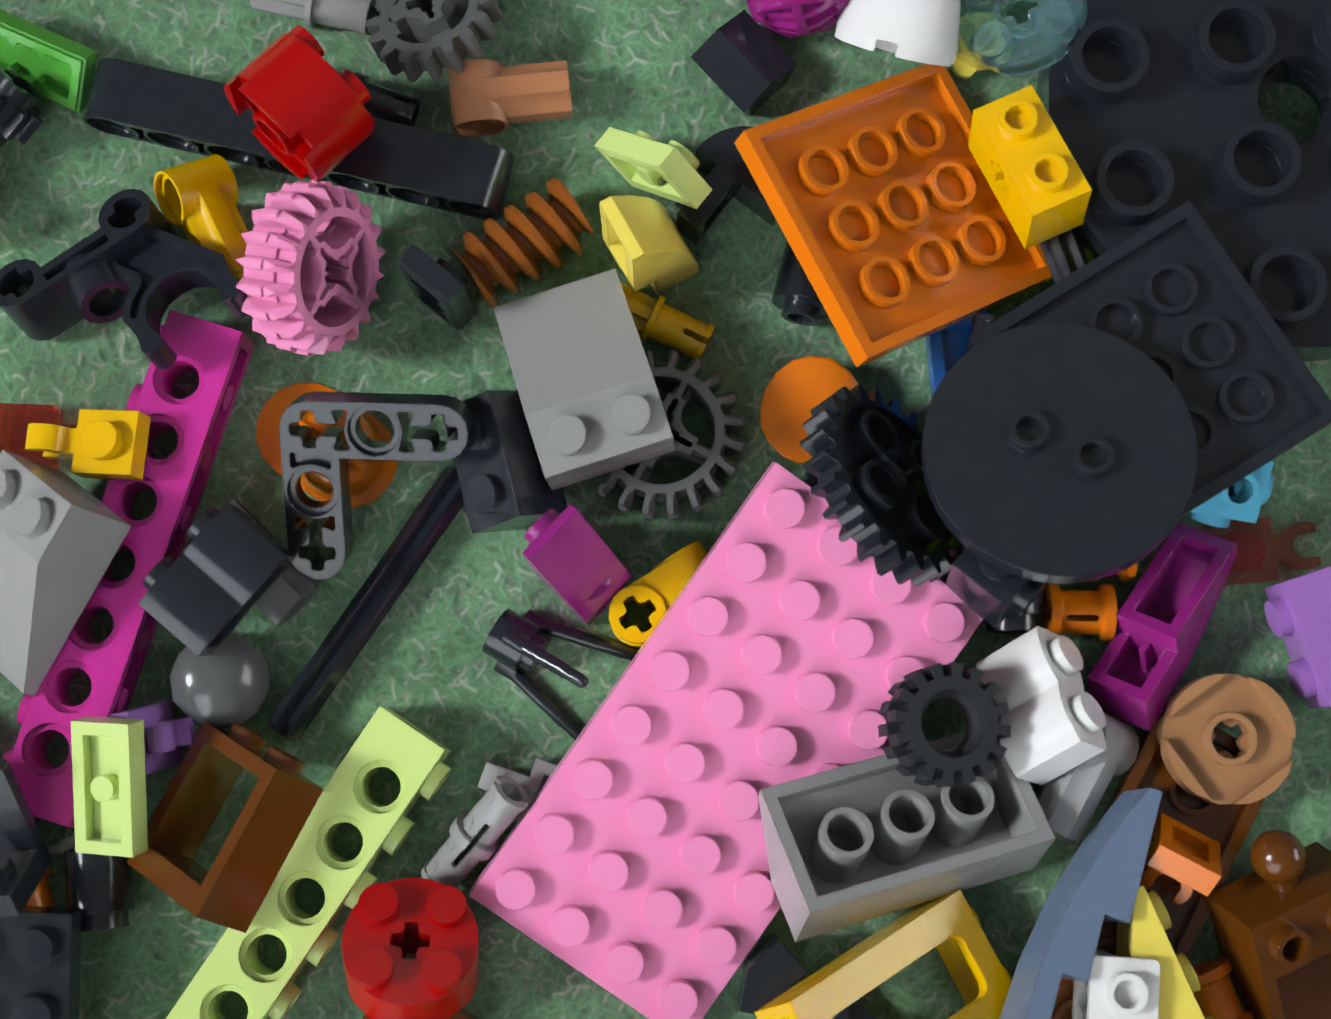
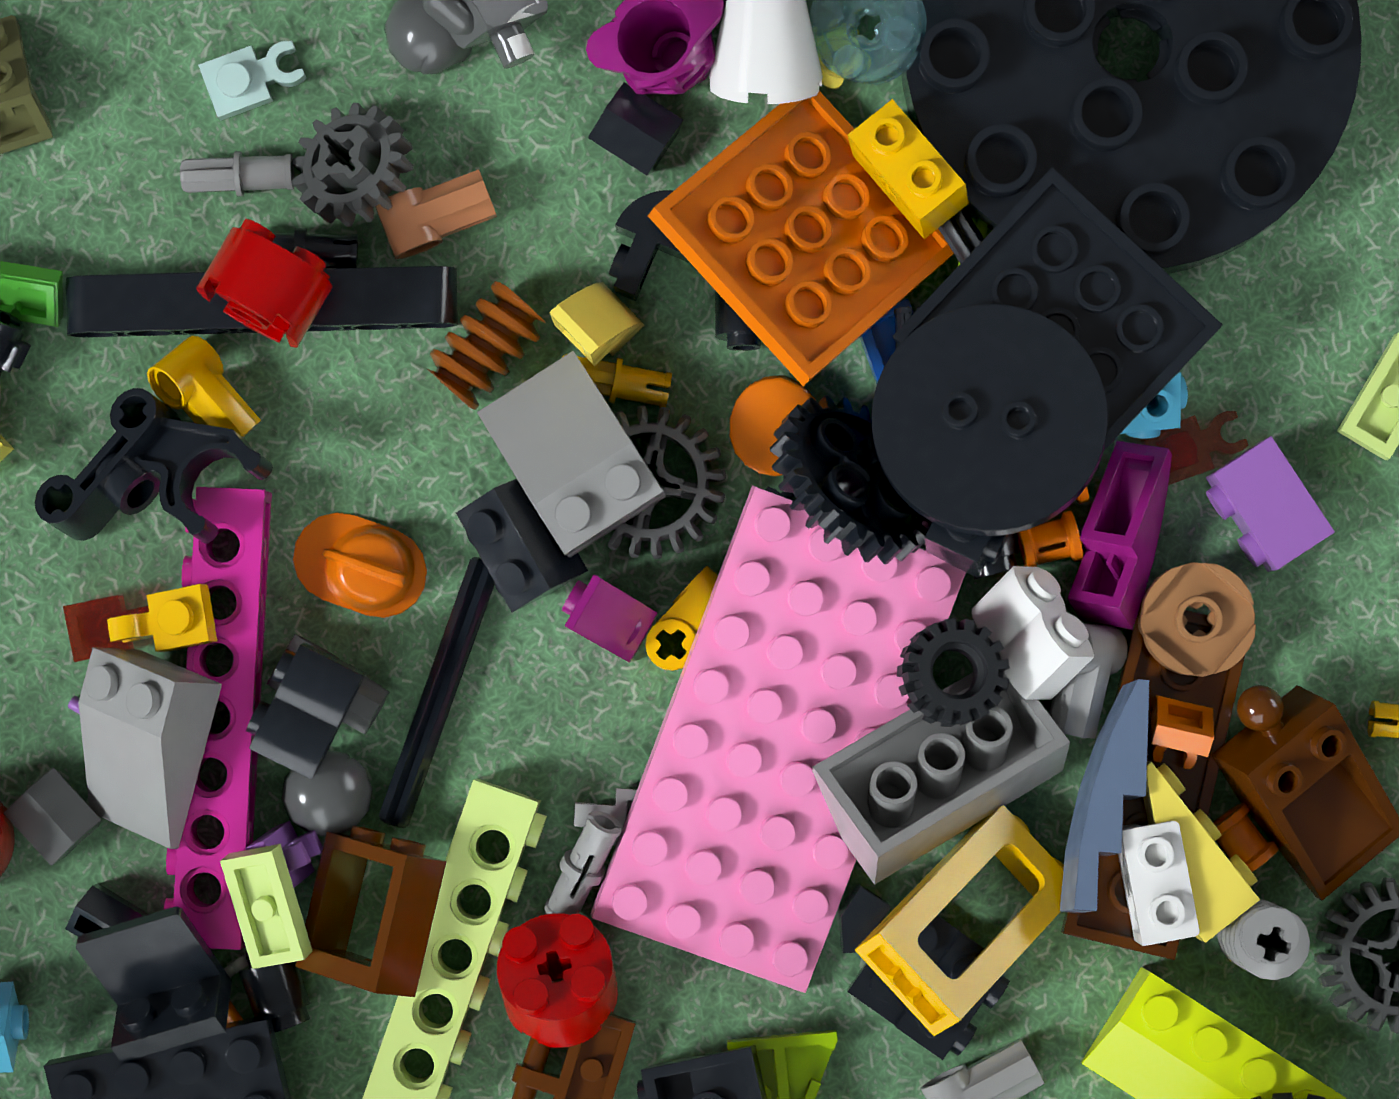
camera: 10 degrees left, 5 degrees up
(310, 267) = (311, 420): bright pink gear -> none
(330, 457) = (373, 577): black beam -> none
(438, 286) = (424, 405): black plate -> none
(519, 644) = (576, 695): black plant -> none
(655, 166) = (584, 249): yellowish green plate -> none

